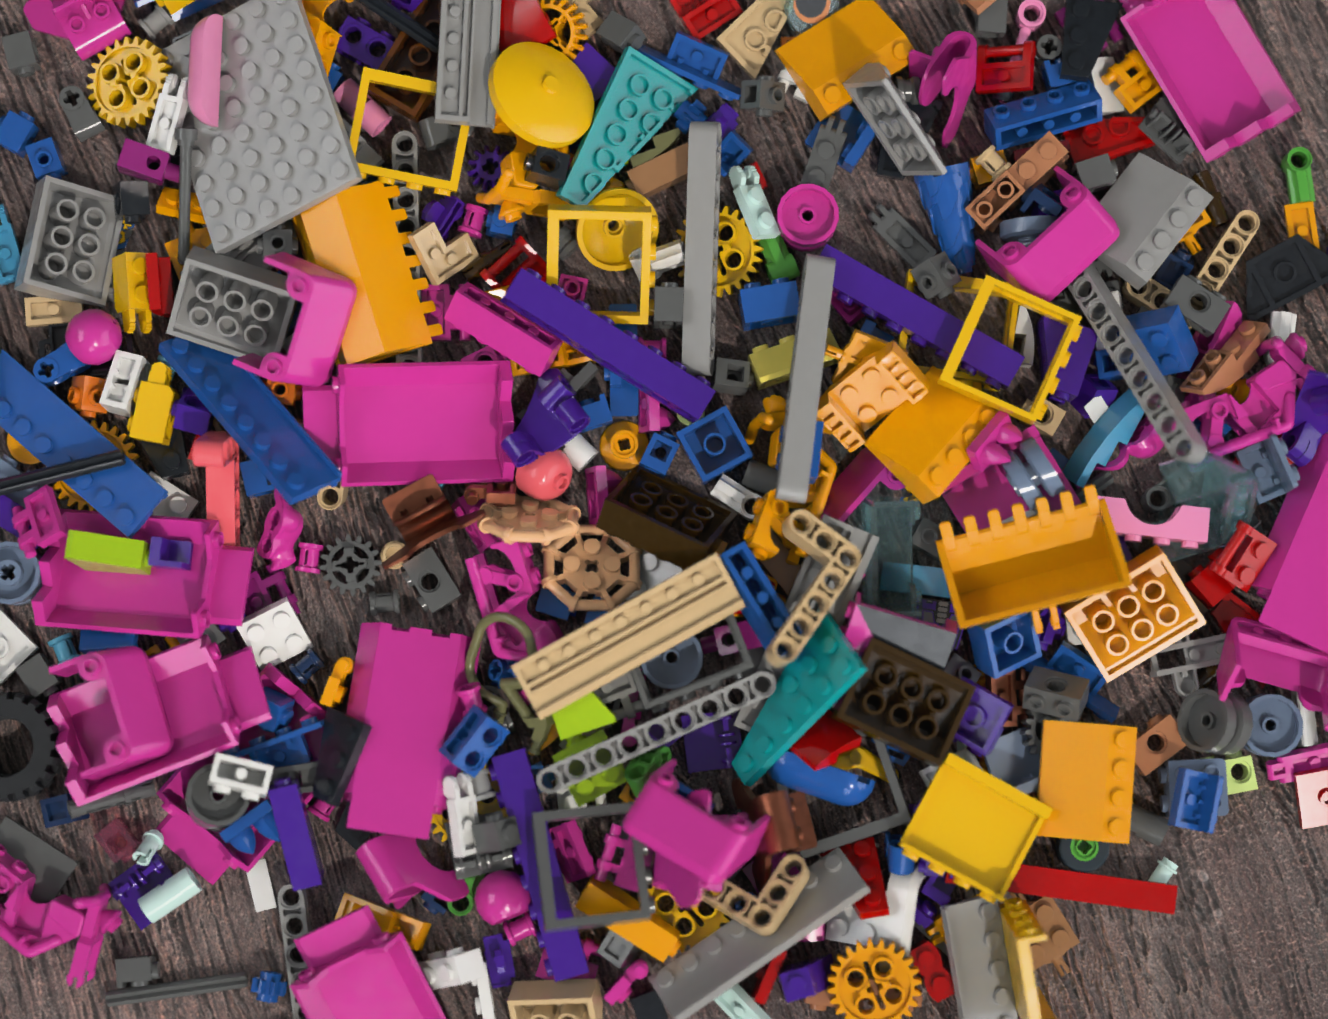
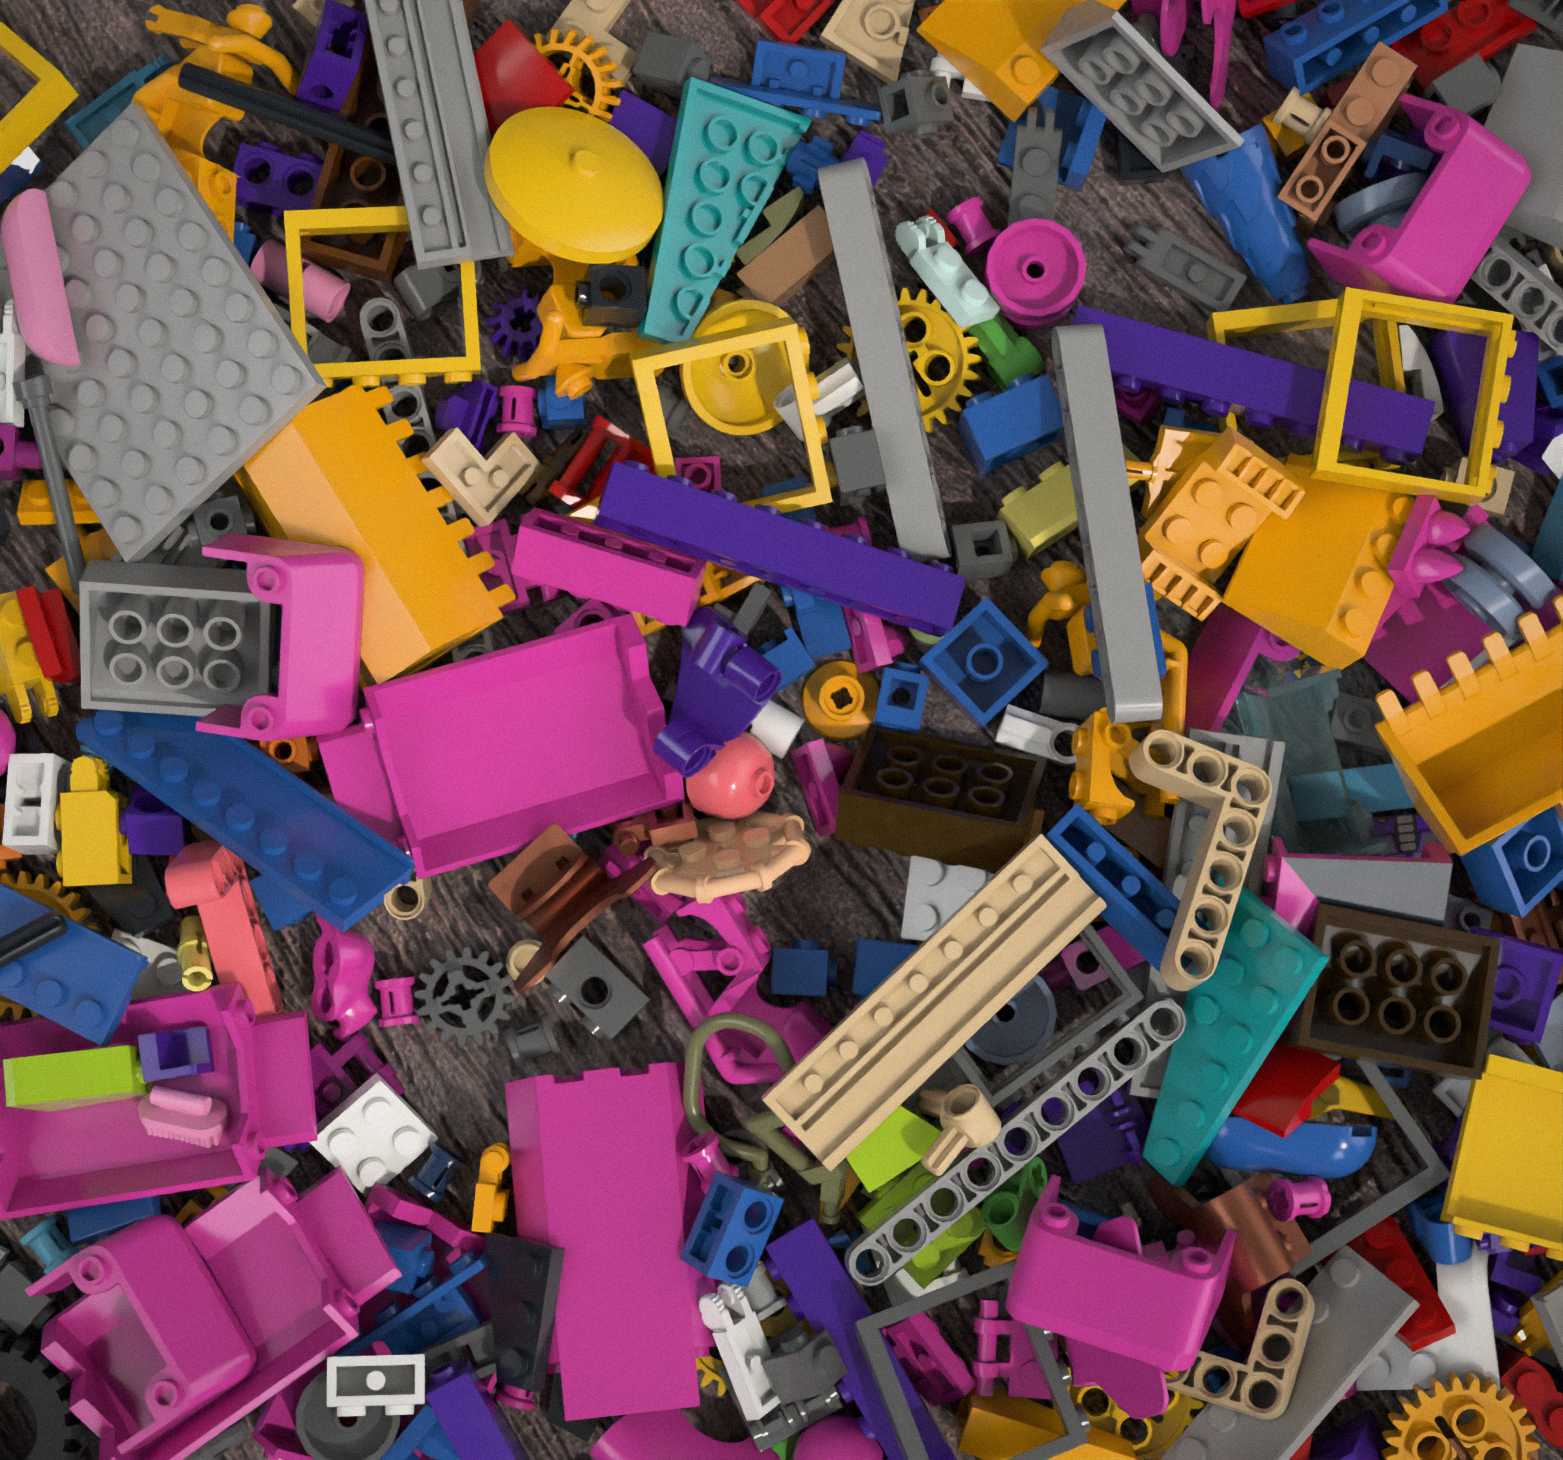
camera: 10 degrees left, 0 degrees up
(165, 592) = (183, 1116): none -> bright pink piece
(196, 497) = (194, 954): none -> light yellow pin
(500, 669) = (743, 1101): blue gear -> none
(585, 583) = (837, 931): light nougat plate -> none
(628, 712) = (965, 1119): none -> tan axle
(733, 152) = (894, 202): blue bracket -> none
(778, 178) = (973, 225): none -> dark pink bush
(816, 811) = (1298, 1198): none -> dark pink bush
(936, 276) = (1262, 312): dark grey brick -> none

